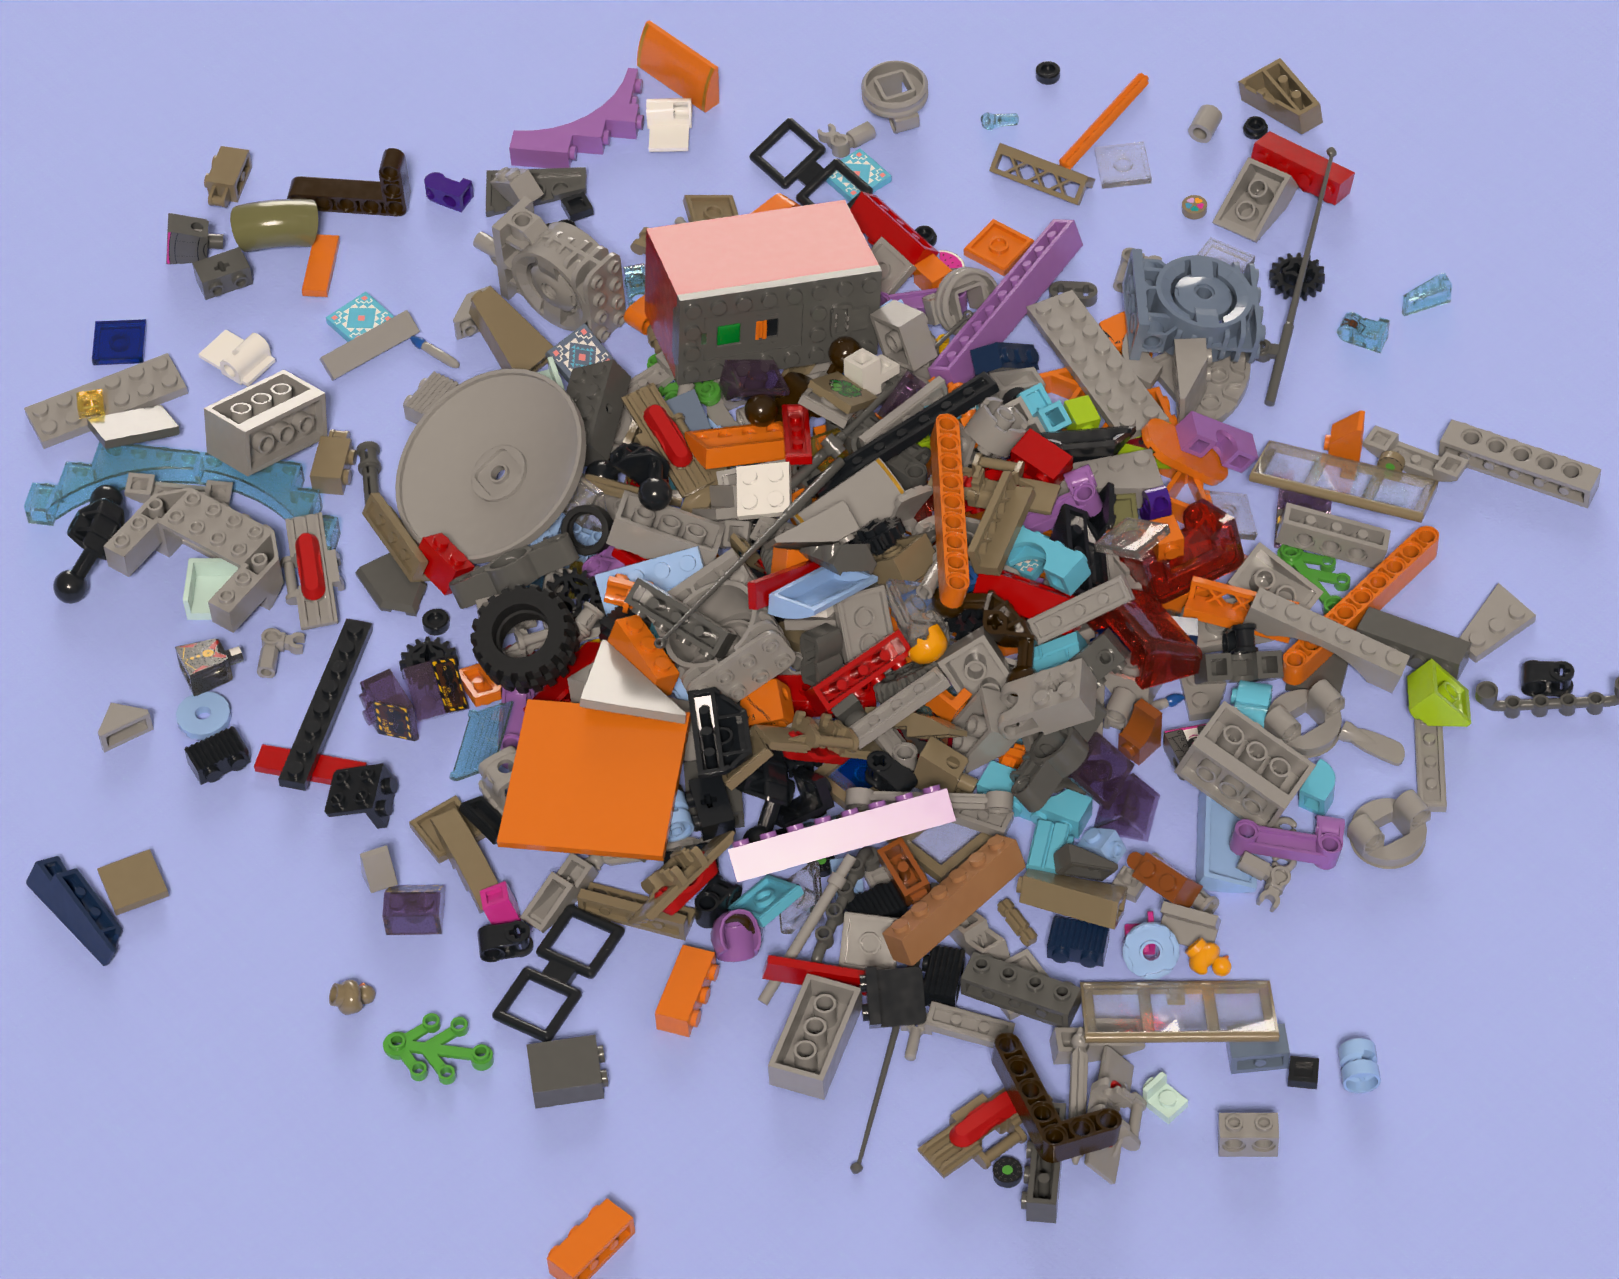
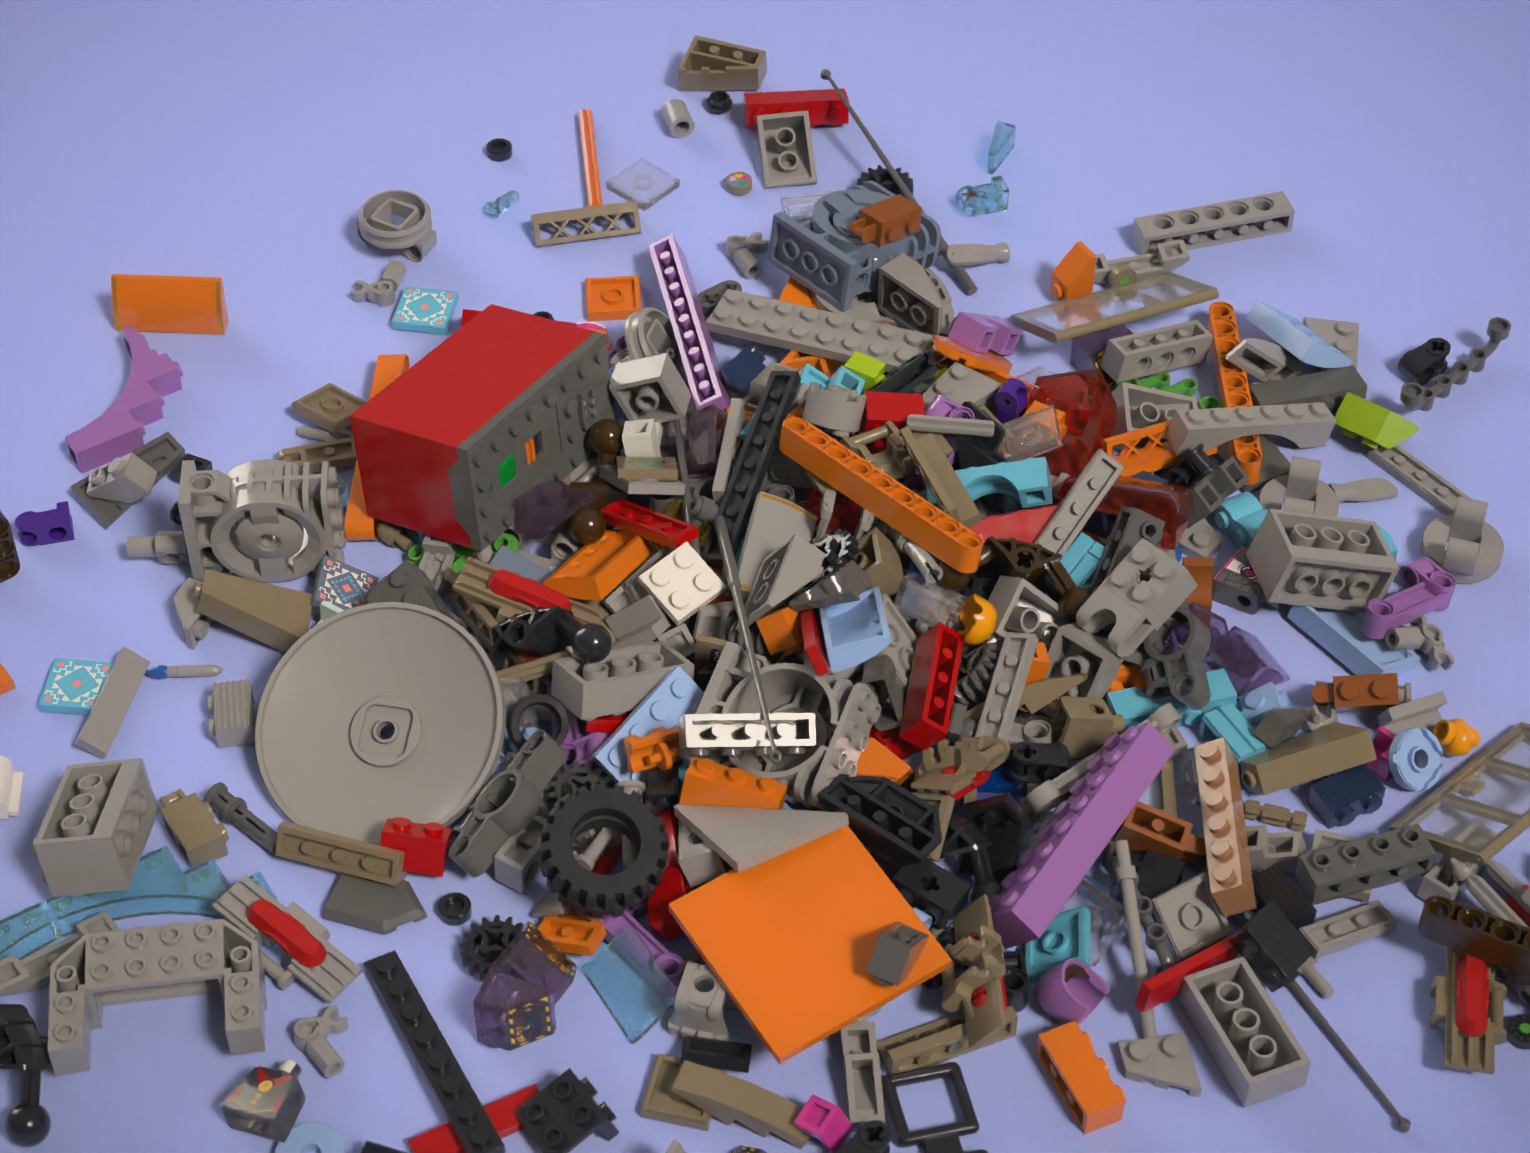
camera: 45 degrees left, 5 degrees down
(202, 582) = (180, 1020): light aqua panel -> none
(625, 824) = (896, 953): none -> dark grey slope
(669, 124) = (206, 357): white piece -> none
(751, 1020) = (1160, 1062): none -> light grey wing
(807, 171) = (380, 326): black bar -> none
(1065, 492) = (950, 425): none -> light grey axle
(1205, 304) = (887, 221): none -> dark orange brick
(1300, 374) = (977, 253): none -> light grey piece
(1404, 595) = (1264, 360): none -> light grey slope
(1457, 594) = (1296, 337): none -> light blue slope

